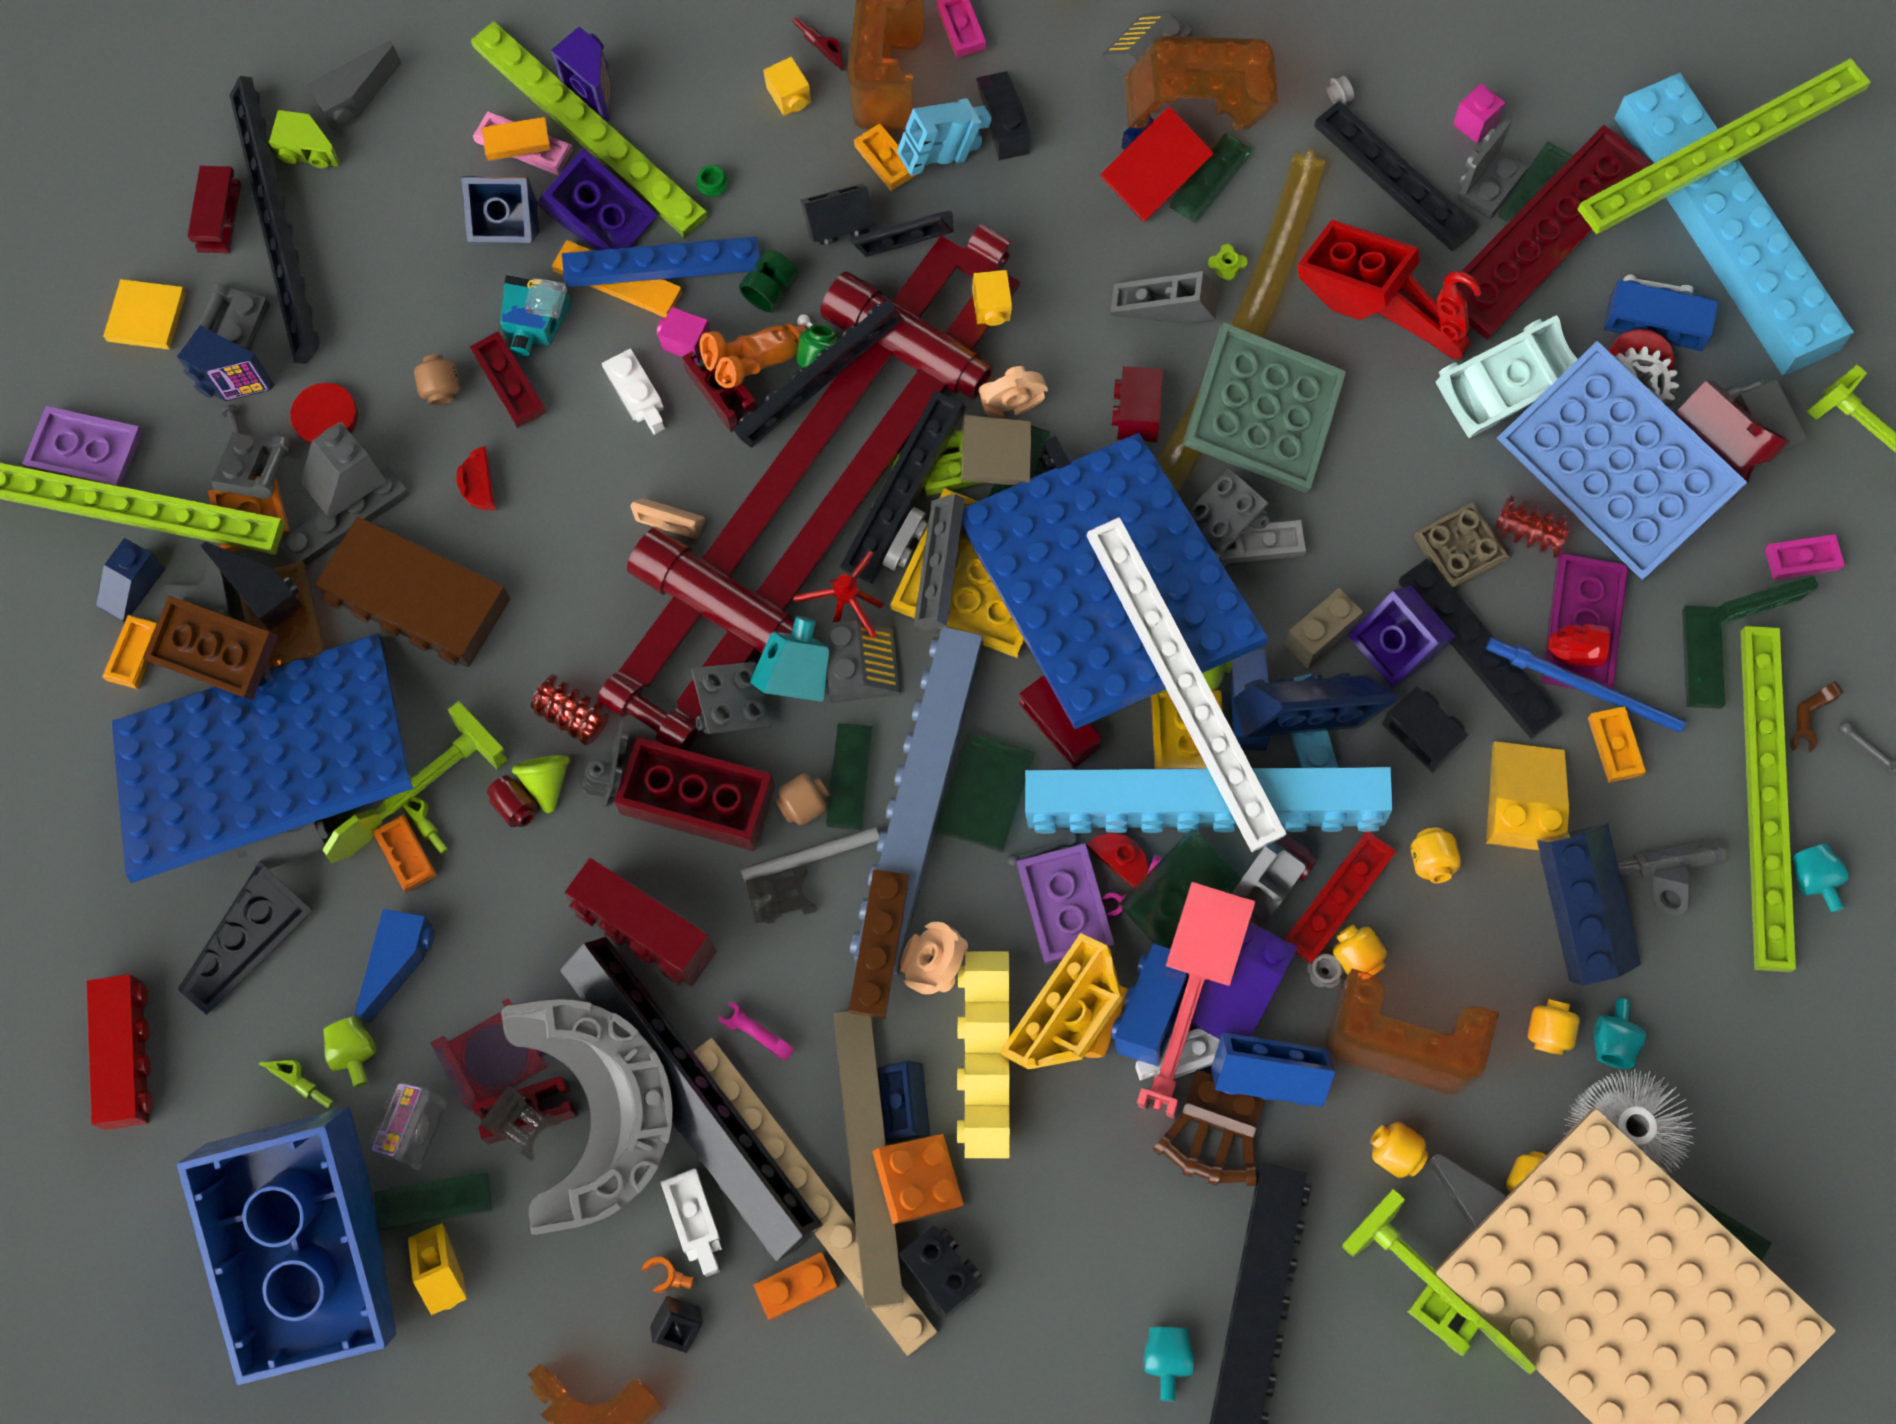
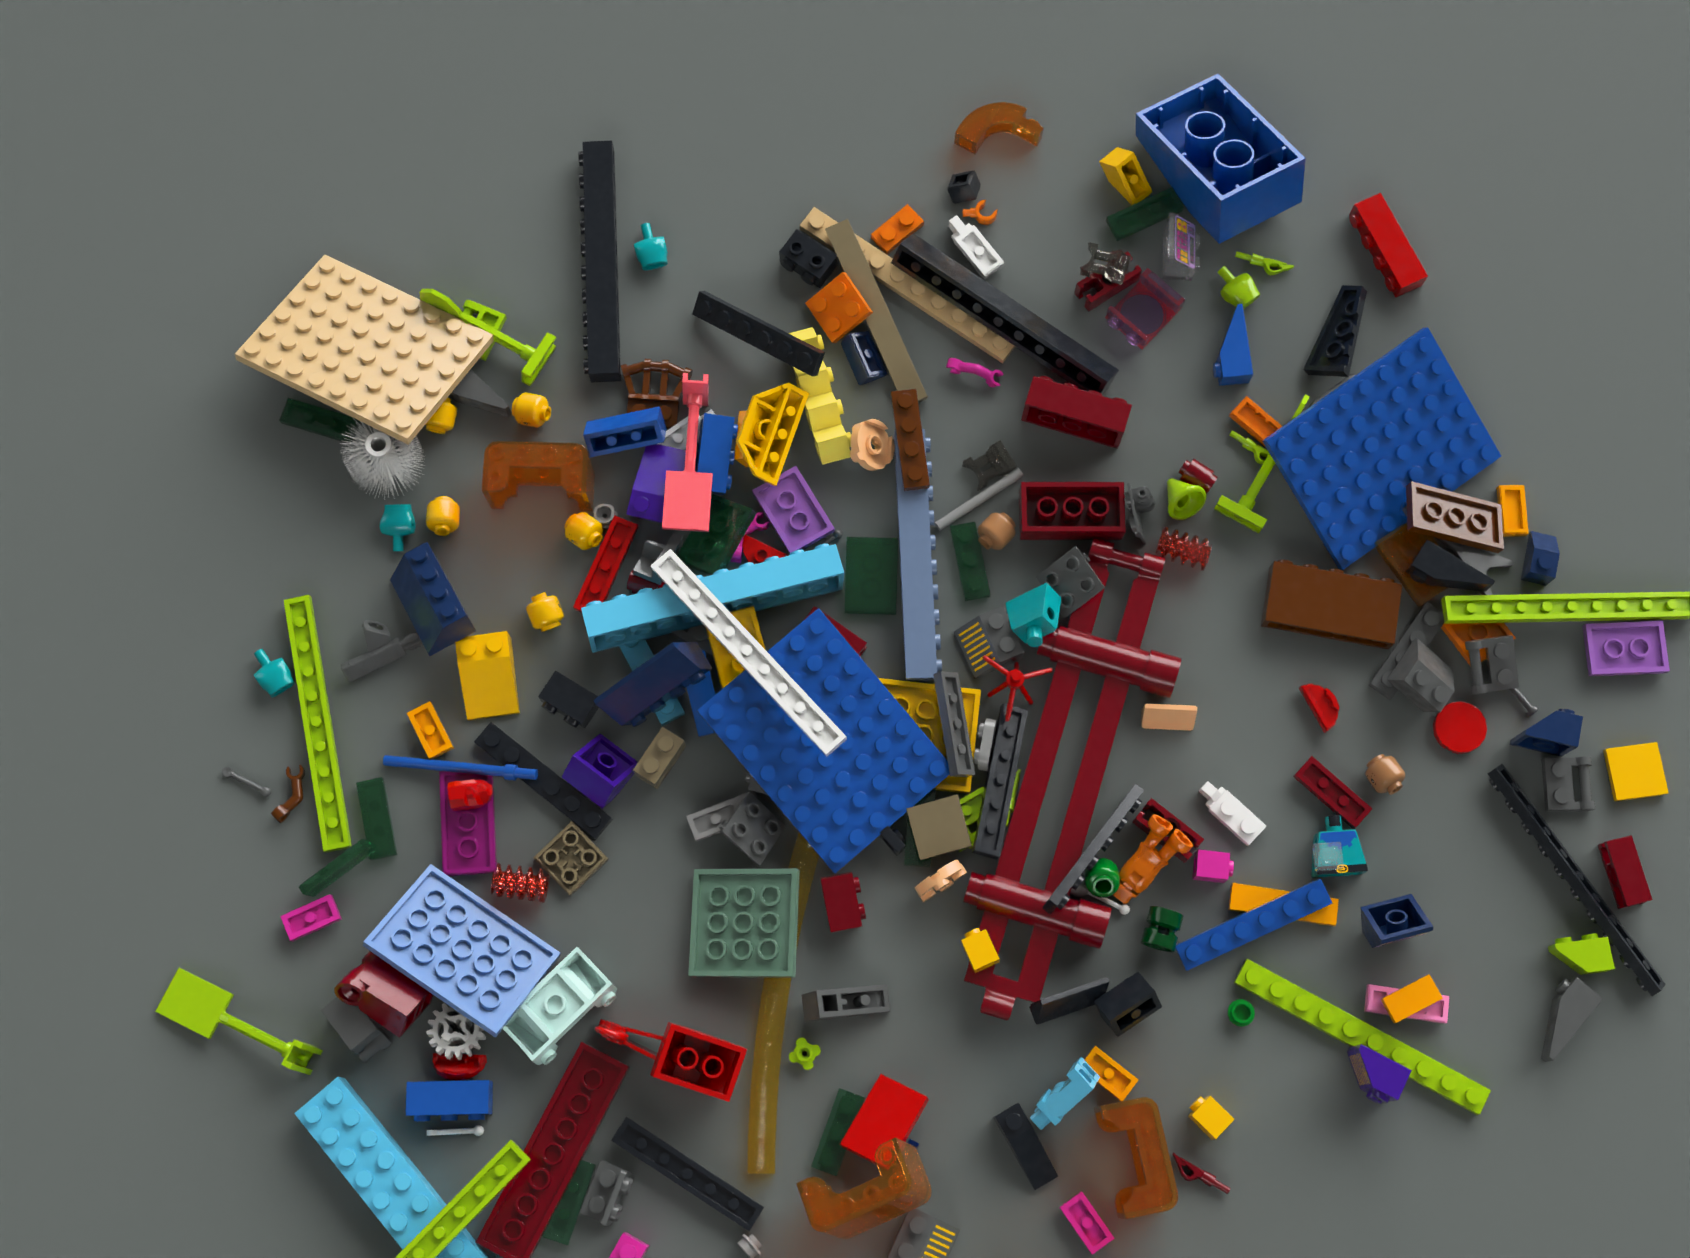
camera: 160 degrees right, 5 degrees up
(596, 205) = (1324, 959): dark purple slope -> none
(626, 1104) = (1036, 281): light grey windscreen -> none
(1047, 1162) = (758, 333): none -> black plate

